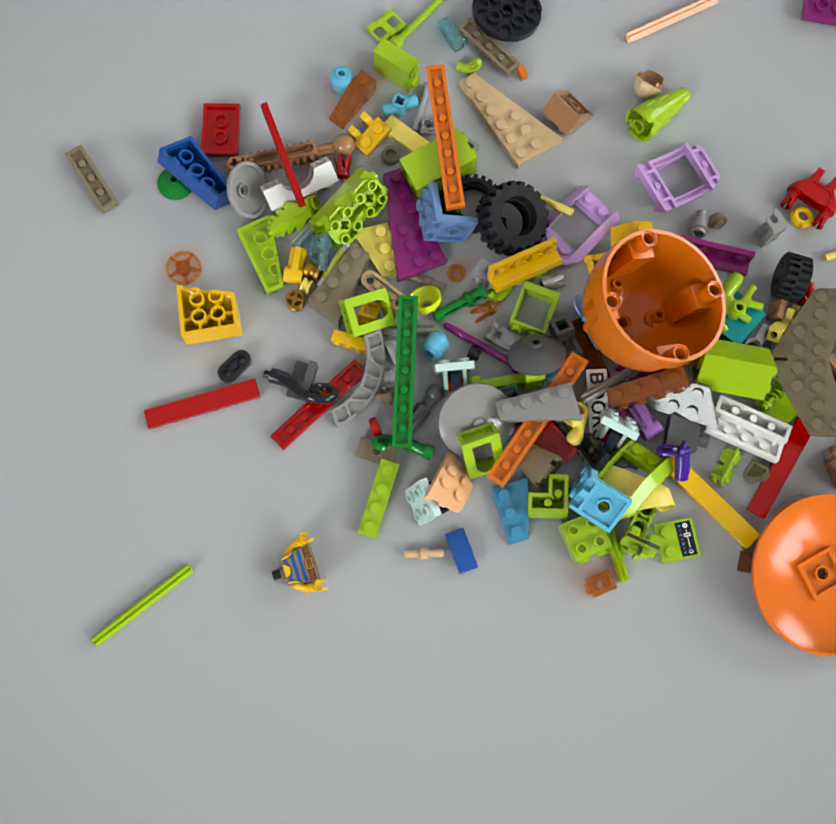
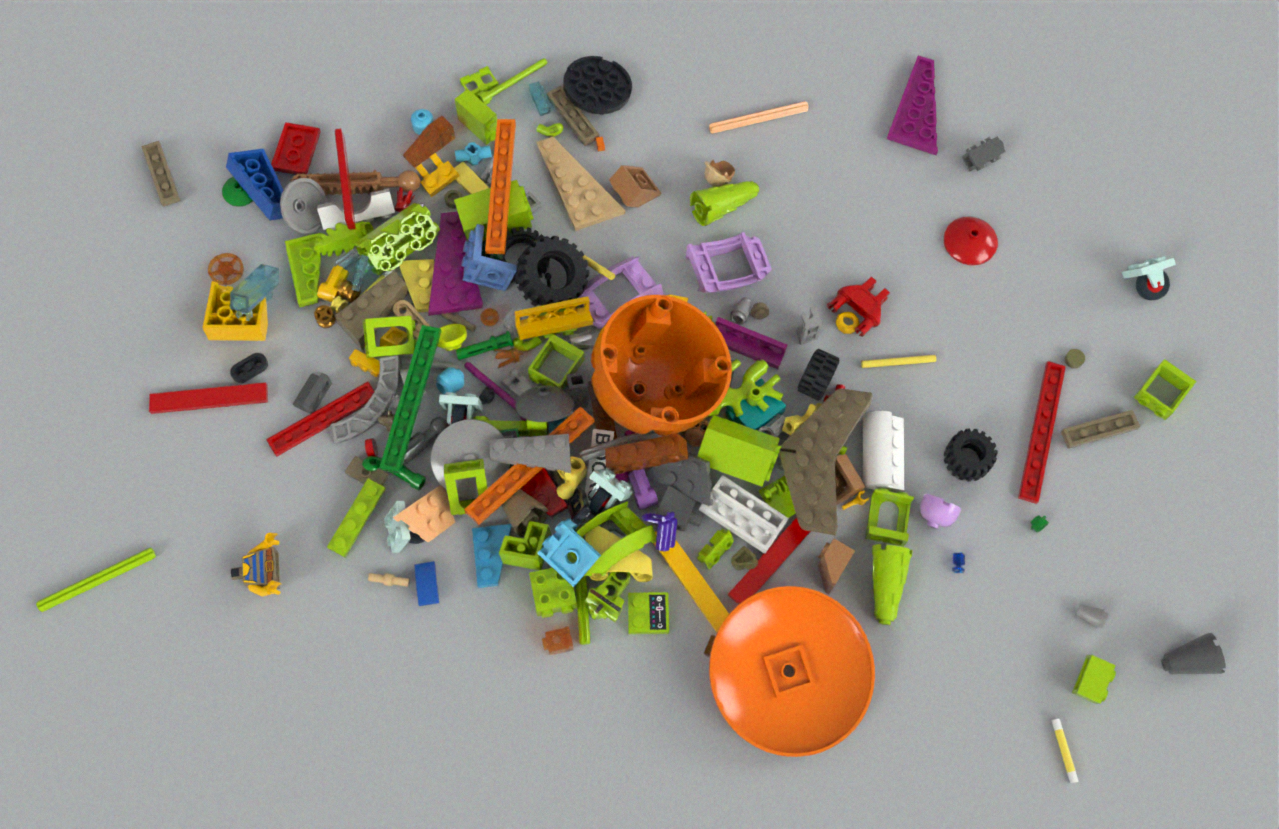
camera: 10 degrees right, 10 degrees down
(223, 288) = (254, 290): none -> clear light blue brick
(315, 395) = (321, 404): black plant -> none
(776, 310) = (799, 405): medium nougat tile -> none

